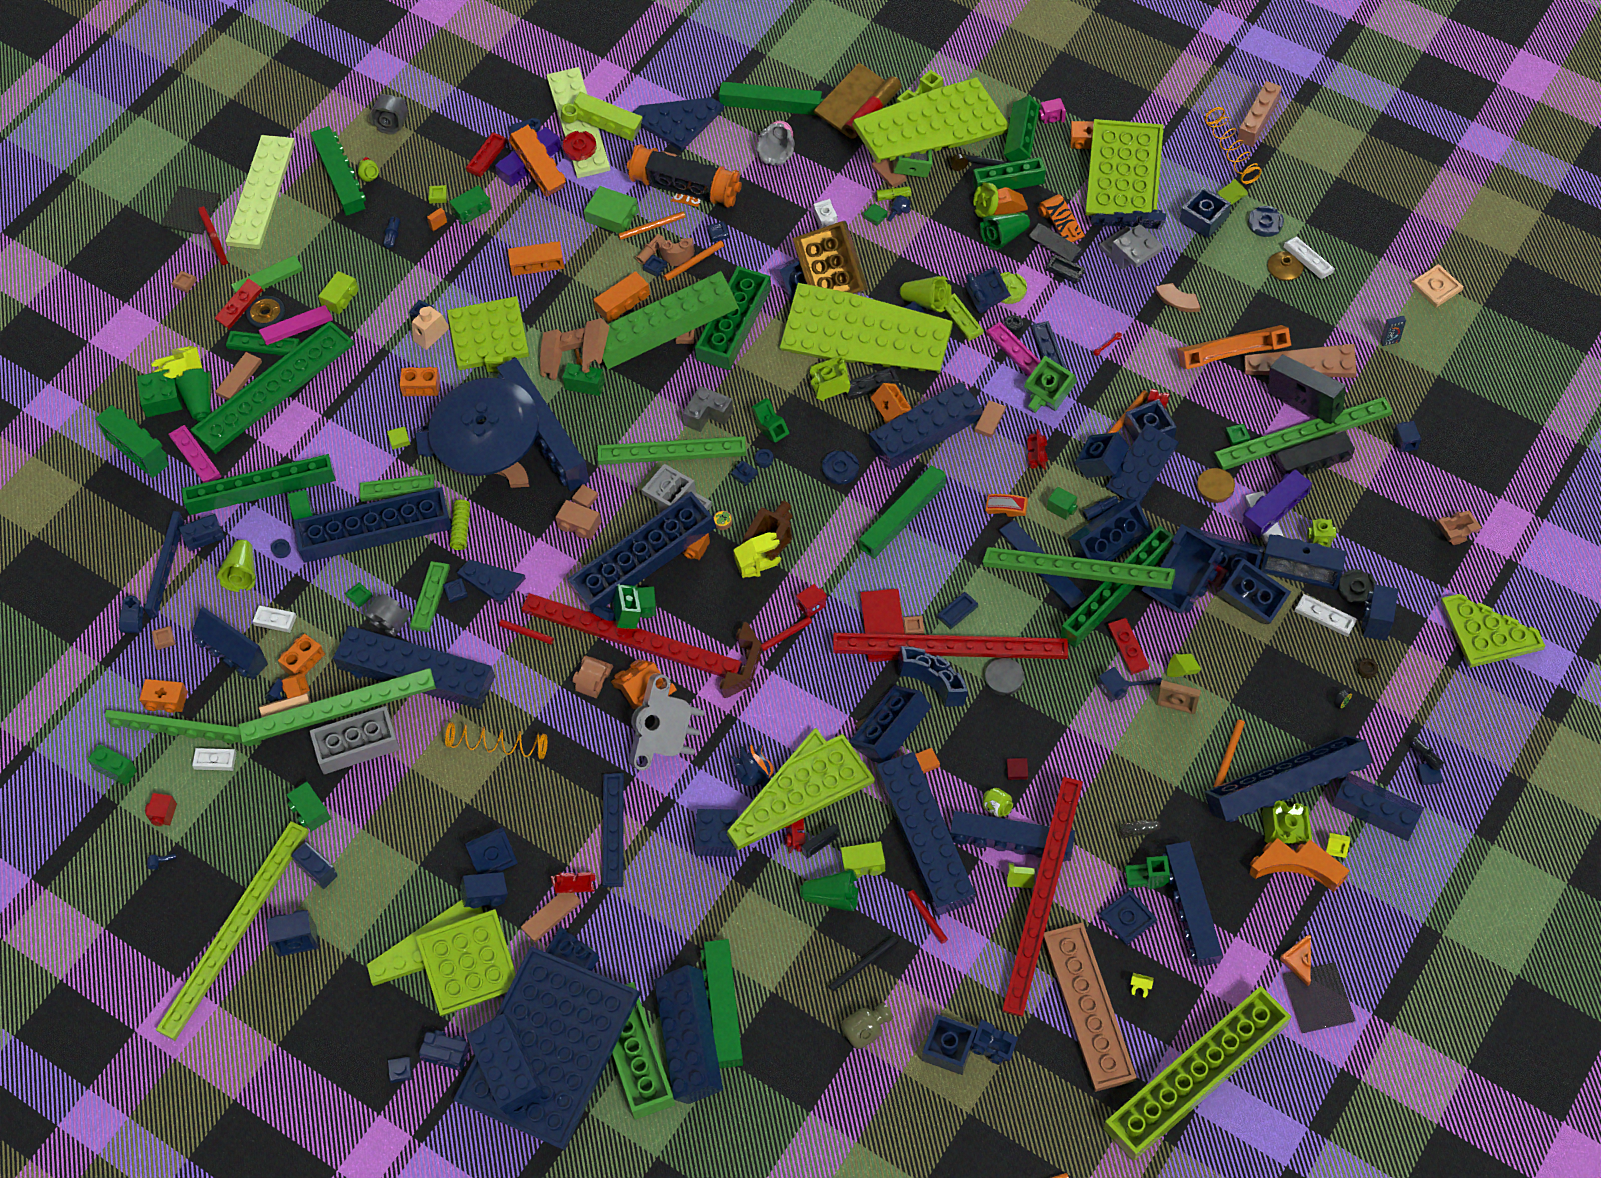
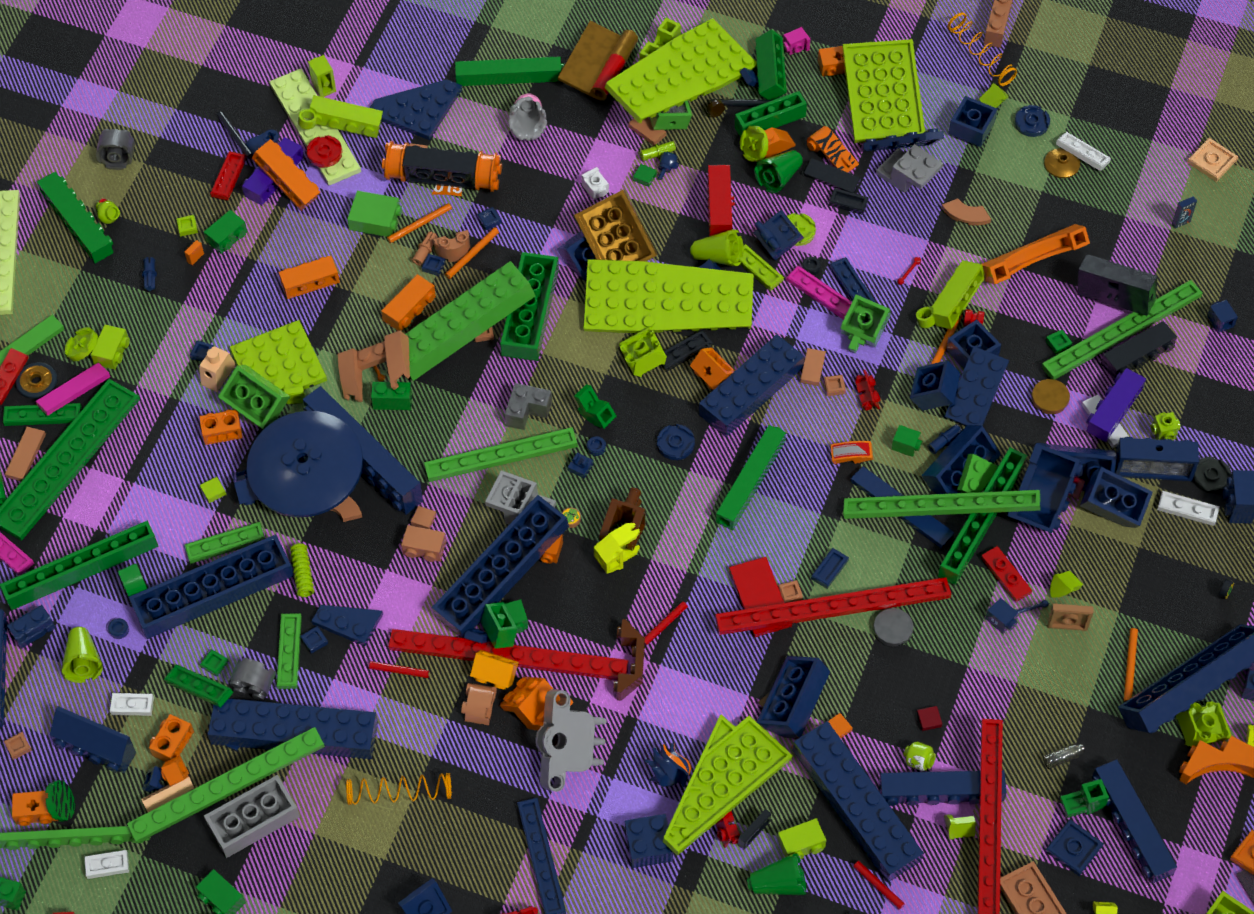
camera: 15 degrees left, 0 degrees up
(185, 693) = (60, 800): none -> green tile
(312, 287) = (81, 345): none -> lime tile
(337, 612) = (198, 685): none -> green tile
(454, 357) = (253, 396): none -> bright green brick
(501, 117) = (235, 135): none -> black bar
(594, 76) = (322, 76): none -> lime brick
(612, 647) = (494, 669): none -> light orange brick
(811, 600) = (682, 584): red brick -> none
(935, 672) = (825, 636): dark blue brick -> none
(938, 246) = (719, 199): none -> red brick
(999, 138) = (750, 77): none -> dark blue tile
(1007, 439) = (834, 385): none -> nougat tile
(1120, 545) = (976, 474): none -> bright green wing
(1143, 375) = (954, 297): none -> lime hinge
(1330, 360) = (1130, 251): nougat wing -> none
(1367, 668) = (1241, 554): dark brown tile -> none

